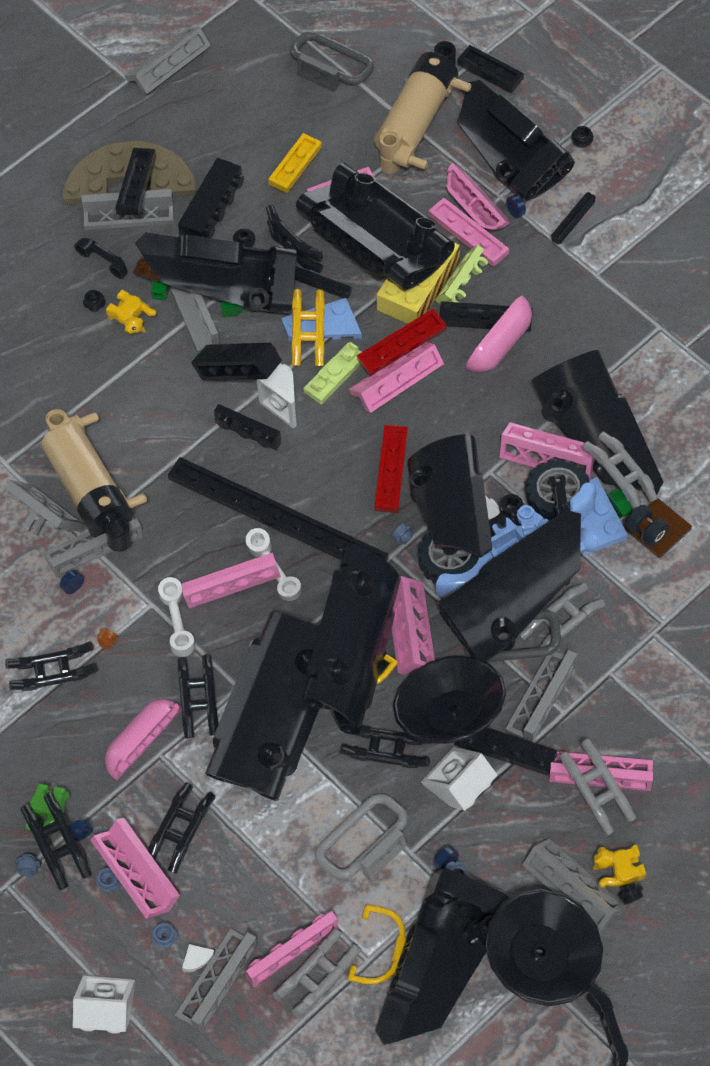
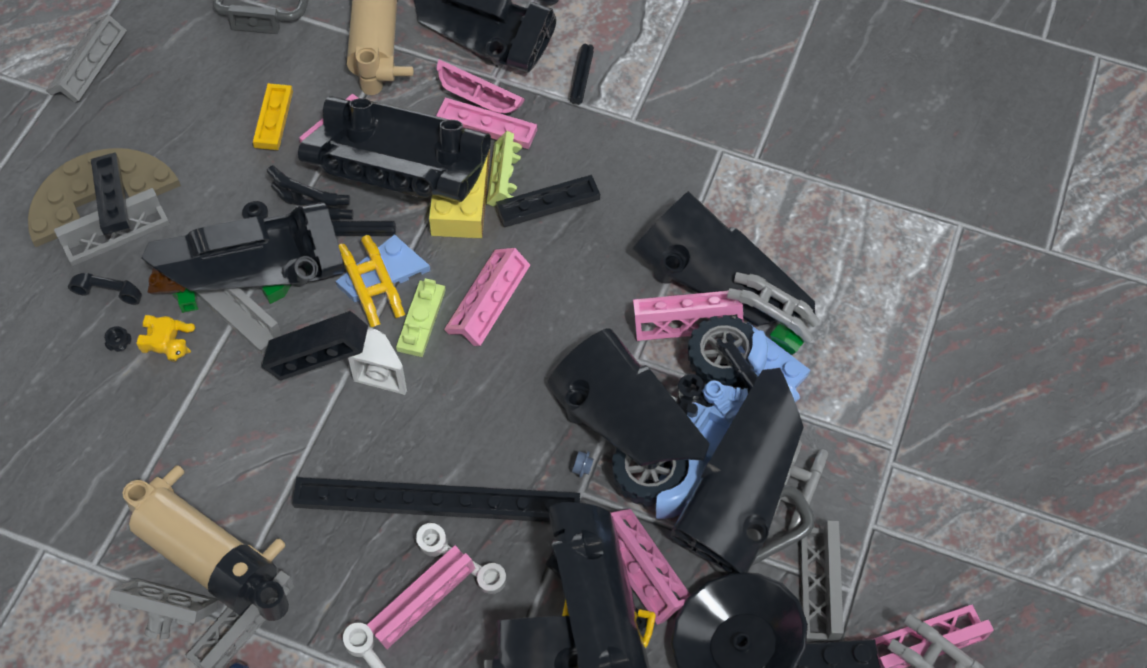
camera: 30 degrees left, 0 degrees up
(211, 199) = (201, 184): black brick -> none
(247, 427) = (356, 413): black plate -> none
(391, 469) = (534, 398): red plate -> none
(401, 342) = (477, 259): red plate -> none
(501, 337) = (578, 216): bright pink brick -> none
(516, 206) = (520, 81): dark blue tile -> none
(657, 527) = (835, 350): reddish brown plate -> none

